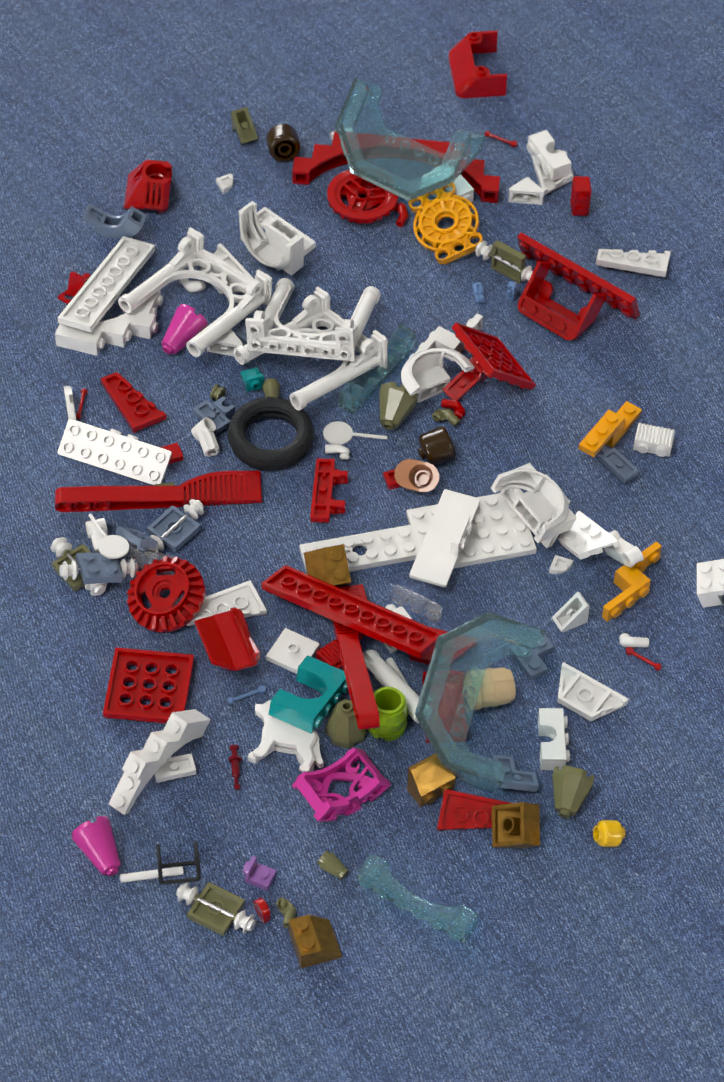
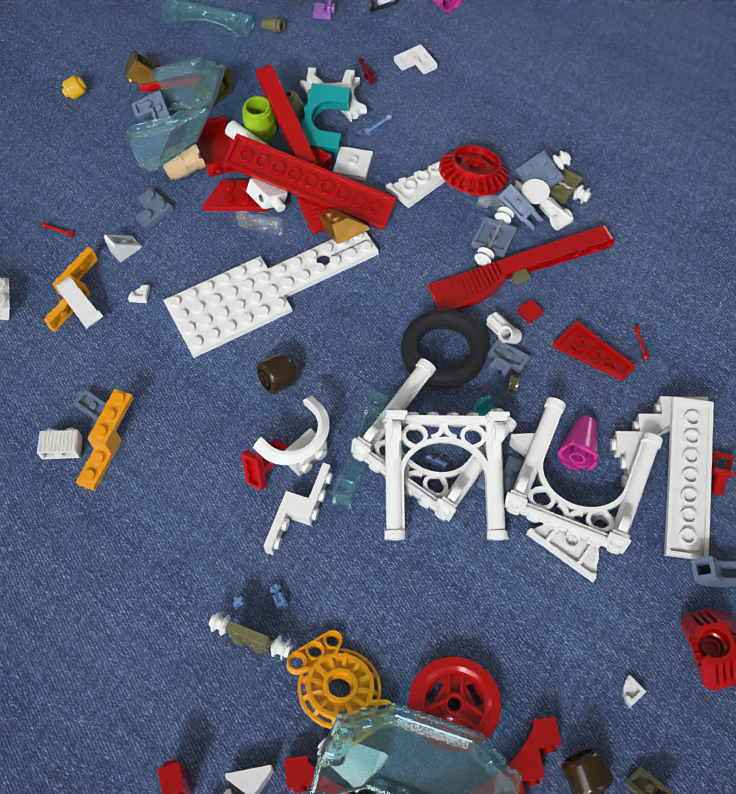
camera: 170 degrees right, 10 degrees up
(69, 402) = (649, 326): white tile -> none
(114, 452) = (581, 297): white bracket -> none
(140, 676) = (462, 100): red piece -> none
(142, 764) = (423, 43): white arch -> none
(228, 640) = (404, 136): red helmet -> none
(271, 388) = (461, 400): olive cone -> none
(280, 244) = (529, 585): white piece -> none
(315, 786) = (281, 52): dark pink fence -> none
(322, 499) = (376, 319): red hinge -> none
(337, 449) = (372, 355): white arm -> none
(342, 433) = (379, 379): white piece -> none
(389, 477) = (311, 341): red tile -> none
(395, 405) = (336, 408): olive cone -> none
(402, 210) = (396, 693): red arm -> none
(416, 475) = (287, 337): nougat piece -> none
(445, 414) = (277, 421): olive arm -> none
(445, 538) = (245, 279): white bracket -> none
(455, 405) = (271, 433): red arm -> none
(493, 356) = (249, 480): red piece -> none
(538, 306) = (180, 586): red windscreen -> none
(541, 508) = (163, 325): white piece -> none
(552, 724) = (124, 152): white arch -> none
(570, 789) = (104, 107): olive cone -> none
(578, 275) = (164, 641): red plate -> none
(586, 538) = (116, 313): white wing -> none
(587, 695) = (102, 184): white wing -> none
(627, 641) = (67, 236): white arm -> none
(646, 263) = (93, 700): white wing -> none

